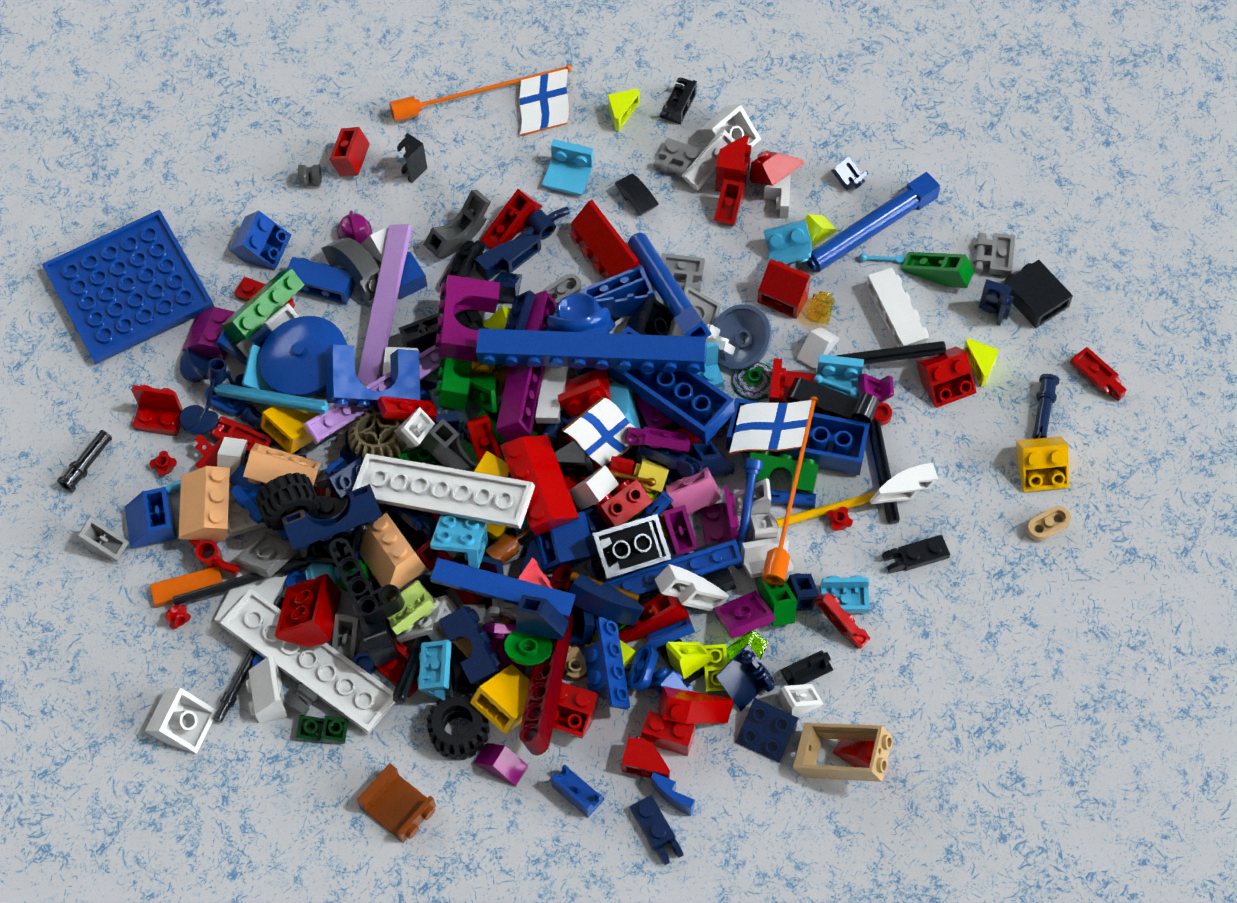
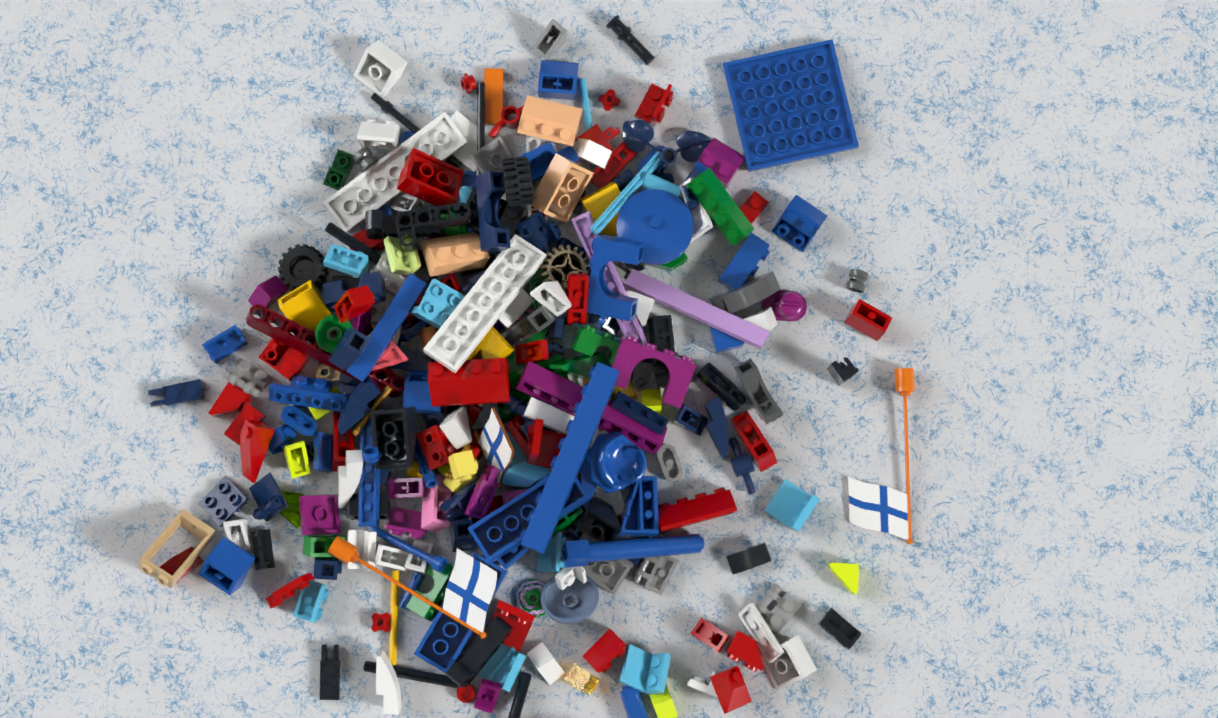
camera: 105 degrees right, 20 degrees up
(396, 804) = (261, 211): dark orange panel -> none
(486, 625) = (354, 303): none -> red slope
(609, 747) = (248, 377): none -> light grey plate
(636, 460) = (463, 465): none -> light yellow brick
(657, 561) = (371, 455): none -> blue plate
(666, 789) = (201, 409): blue slope -> none
(715, 666) = (284, 480): neon yellow slope -> none
(841, 694) = (227, 566): none -> blue slope

